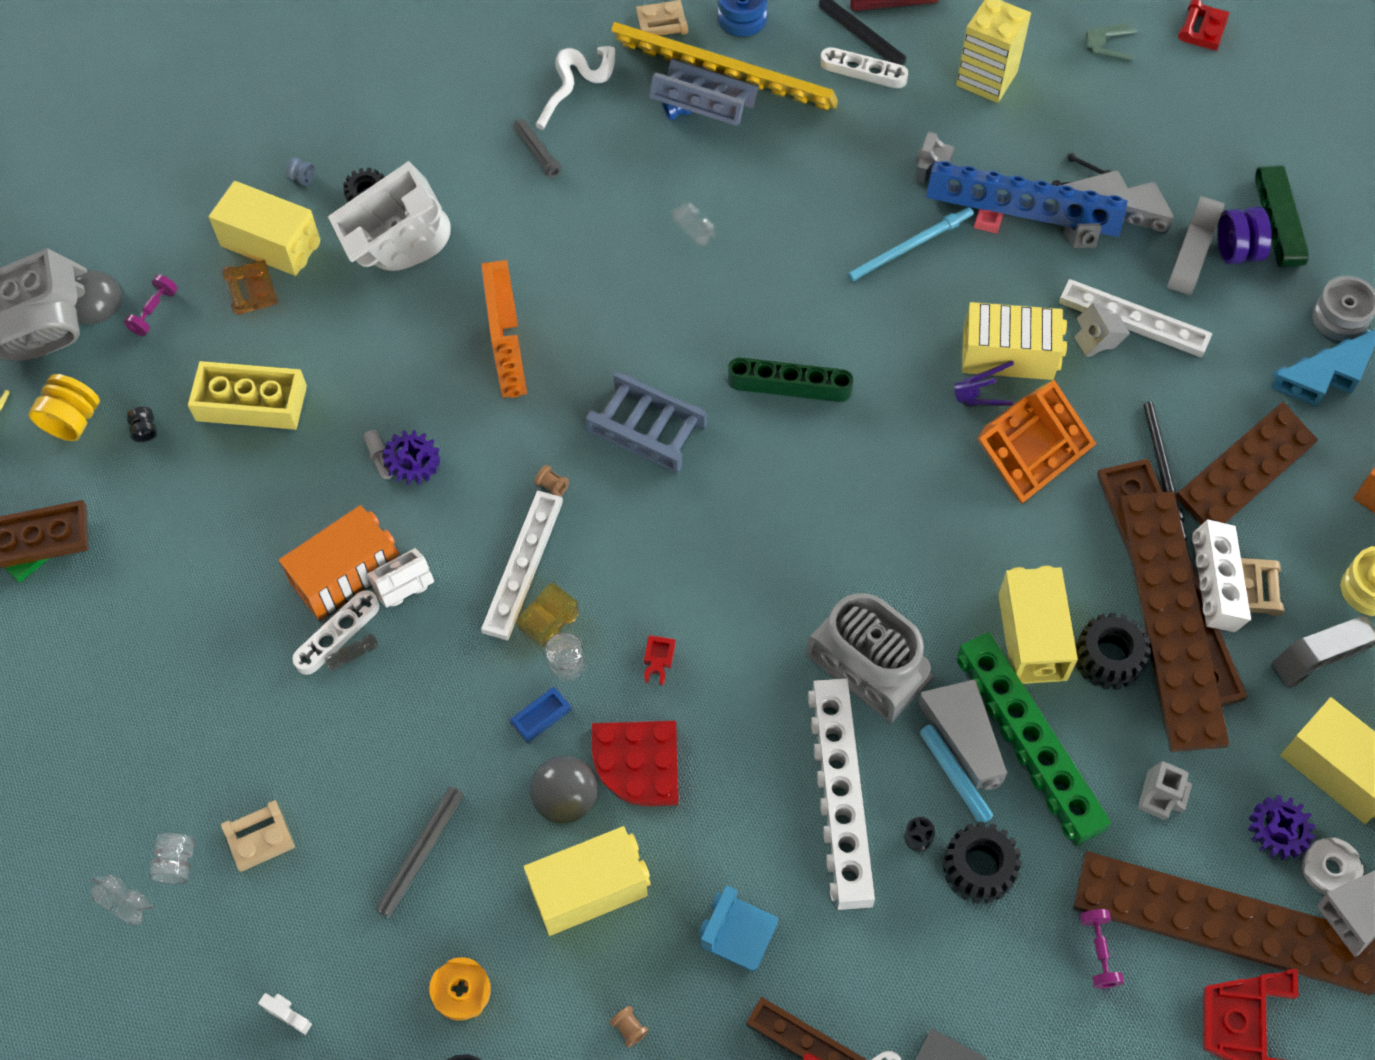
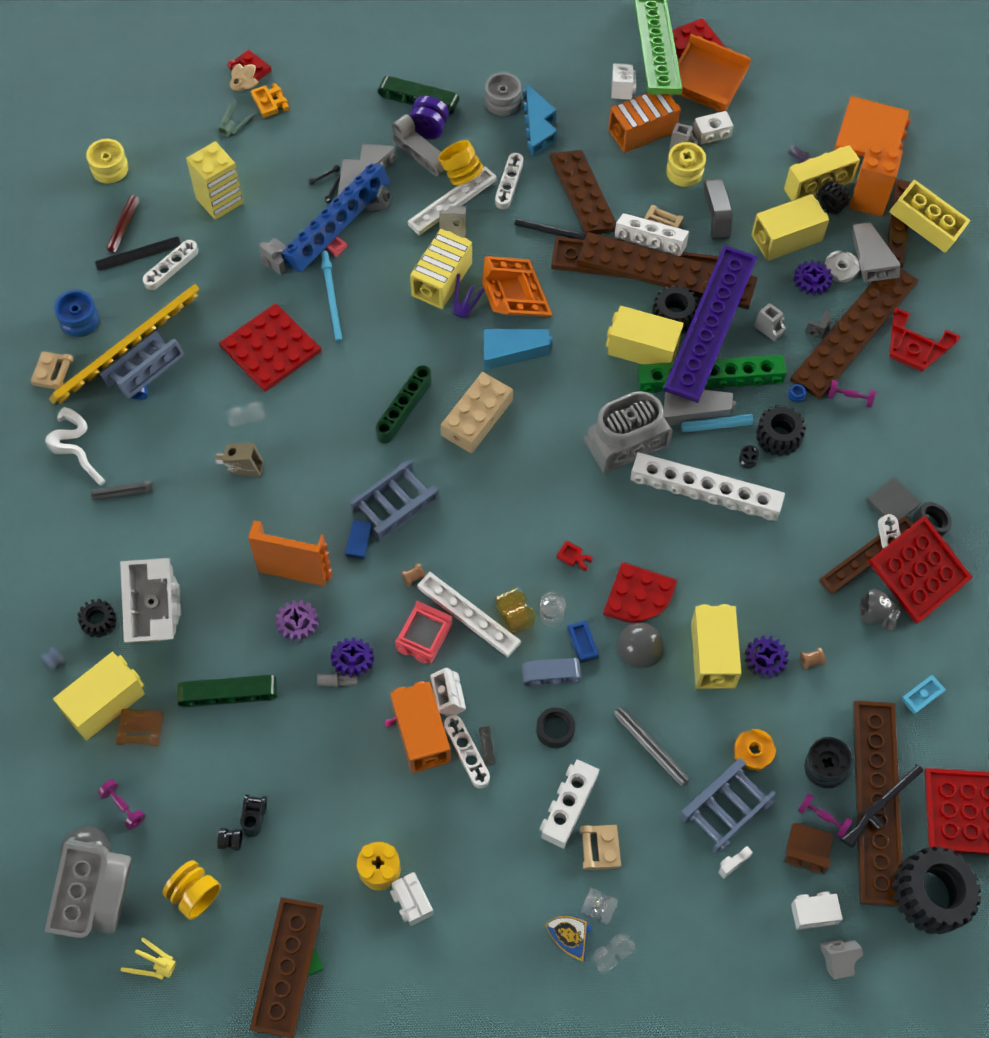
camera: 70 degrees left, 0 degrees up
(122, 639) = (411, 899): none -> white brick
(127, 837) = (570, 934): none -> shield
(152, 587) = (369, 858): none -> yellow brick
(179, 435) = (253, 811): none -> black piece
(247, 395) = (245, 752): light yellow brick -> none
(322, 349) = (226, 691): none -> dark green beam
(343, 786) = (587, 777): none -> white brick
(364, 946) = (707, 799): none -> sand blue fence
(397, 703) = (558, 713): none -> black tyre
(436, 383) = (287, 618): none -> medium lavender gear
(473, 523) = (424, 633): none -> coral window
(478, 690) = (551, 672): none -> sand blue beam
(577, 405) = (358, 539): none -> blue tile
(596, 965) = (769, 653): none -> dark purple gear
(625, 231) = (241, 459): none -> dark tan torso
(737, 930) = (773, 576): dark azure bracket -> none
(802, 211) = (270, 347): none -> red plate
(817, 465) = (476, 412): none -> tan brick
(943, 471) = (514, 345): none -> dark azure slope
(1063, 869) = (797, 393): none -> blue plate
(1106, 700) = (710, 324): none -> dark purple plate
(1162, 58) = (265, 102): none -> light orange plate
(1177, 24) = (243, 77): none -> tan plate
(1191, 298) = (460, 162): none -> yellow wheel
(1204, 869) = (817, 329): none -> dark grey bracket
(1209, 368) = (507, 180): none -> white beam

